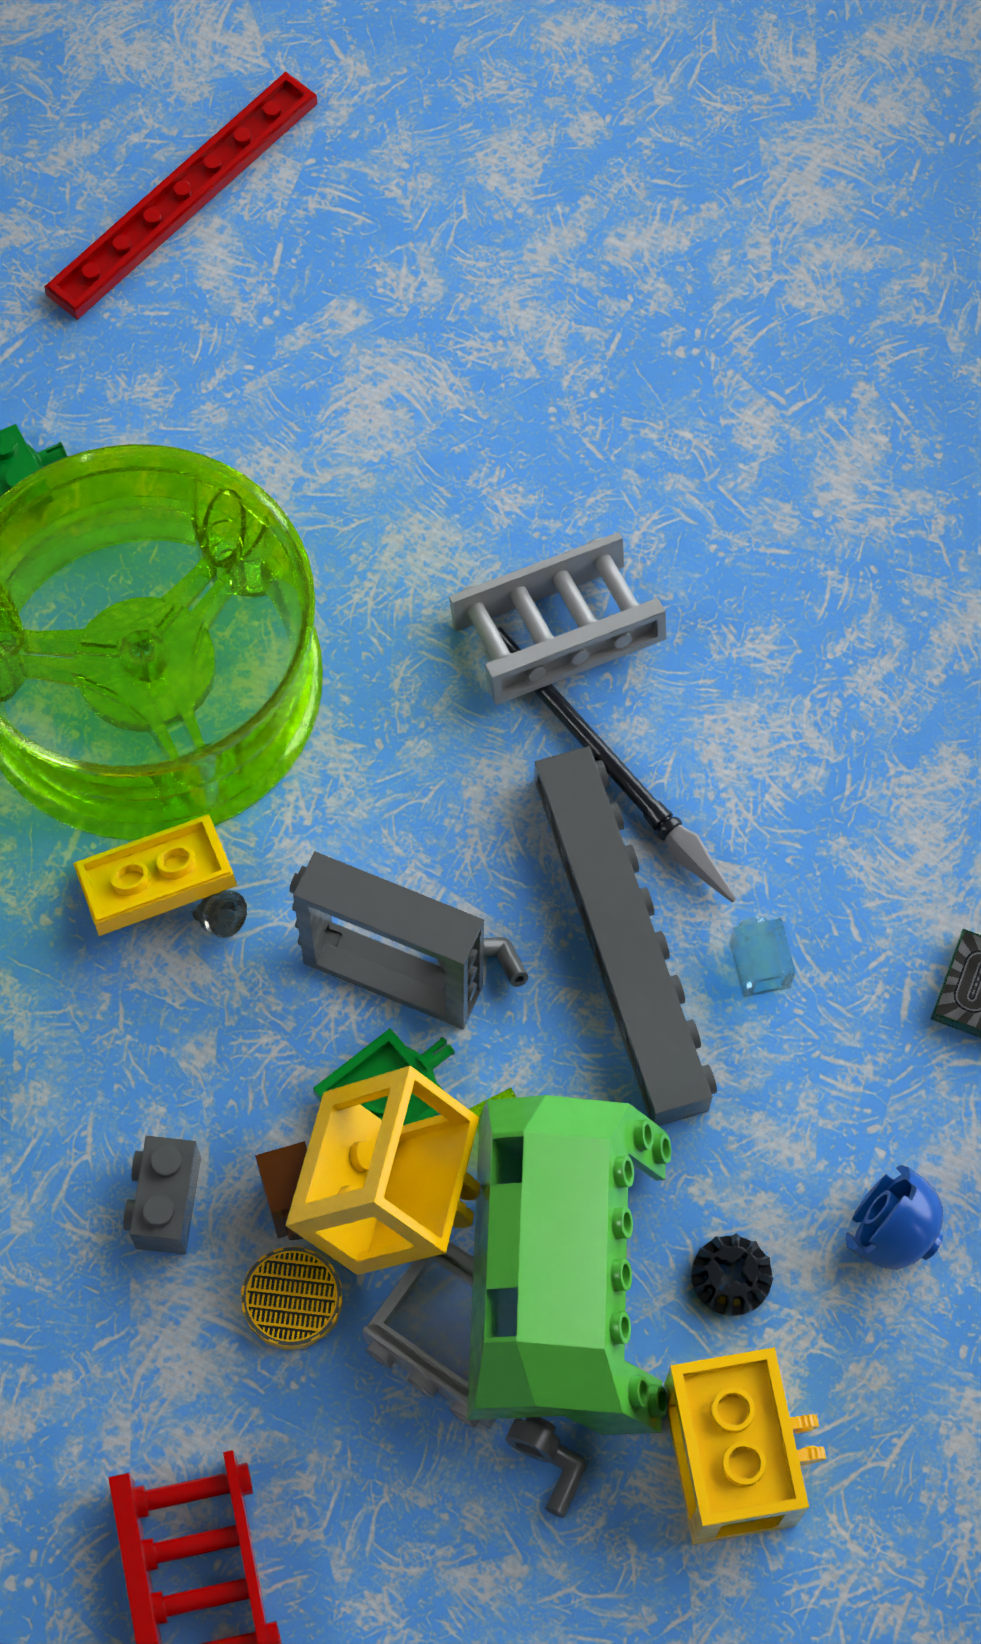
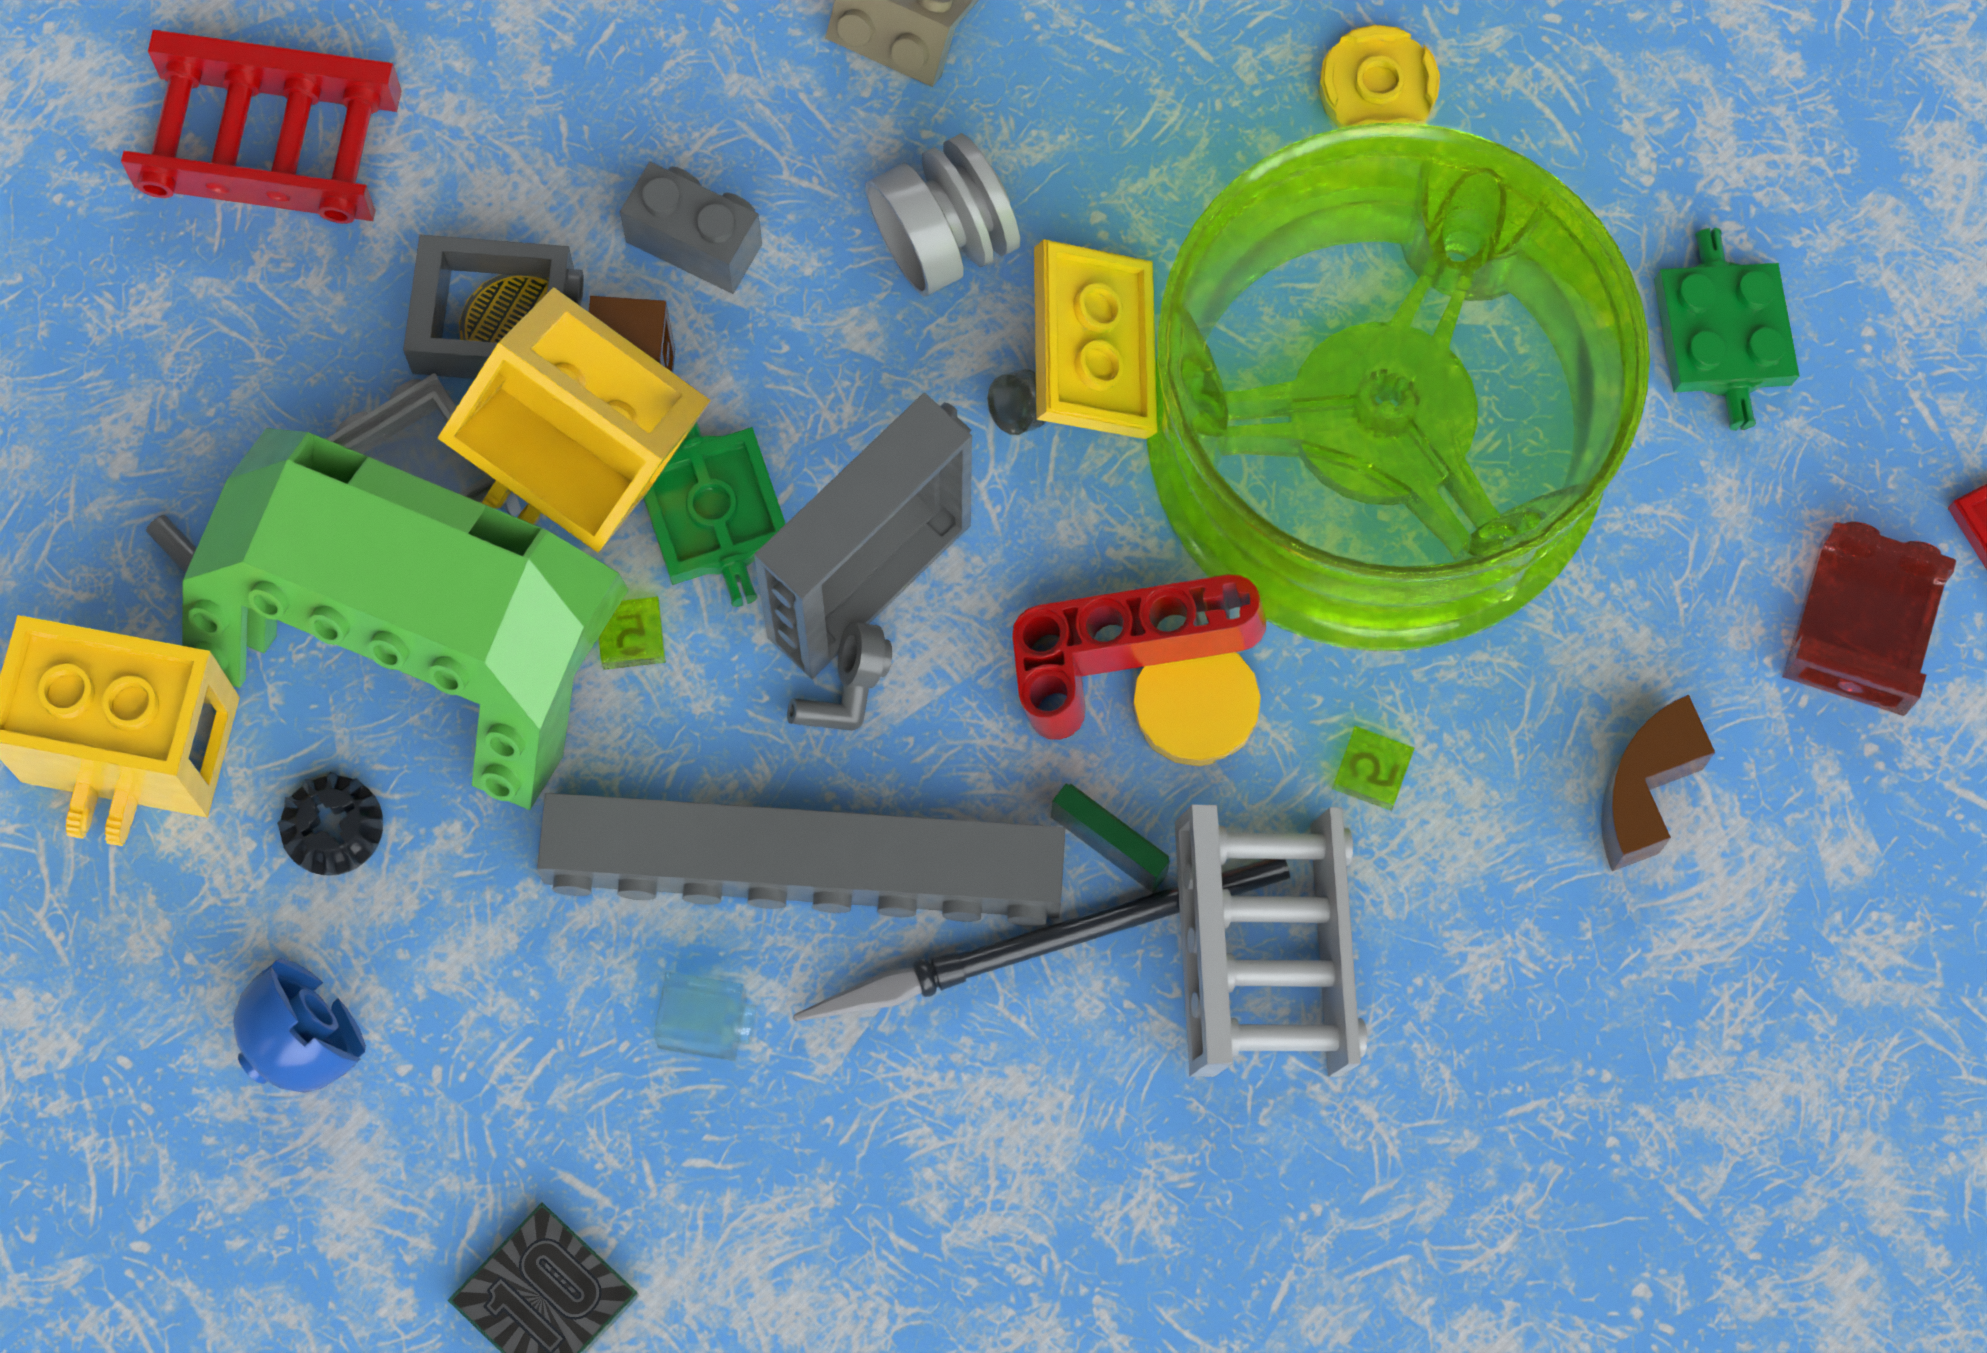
camera: 110 degrees right, 5 degrees up
(97, 1005) = (954, 209): none -> light grey wheel
(179, 340) = (1868, 617): none -> clear red panel
(304, 1360) = (436, 259): none -> dark grey window
(330, 435) = (1661, 751): none -> reddish brown brick
(378, 763) = (1136, 646): none -> red beam
(400, 725) = (1197, 707): none -> yellow tile
(402, 602) = (1373, 768): none -> clear neon green tile
(523, 741) = (1110, 837): none -> dark green tile

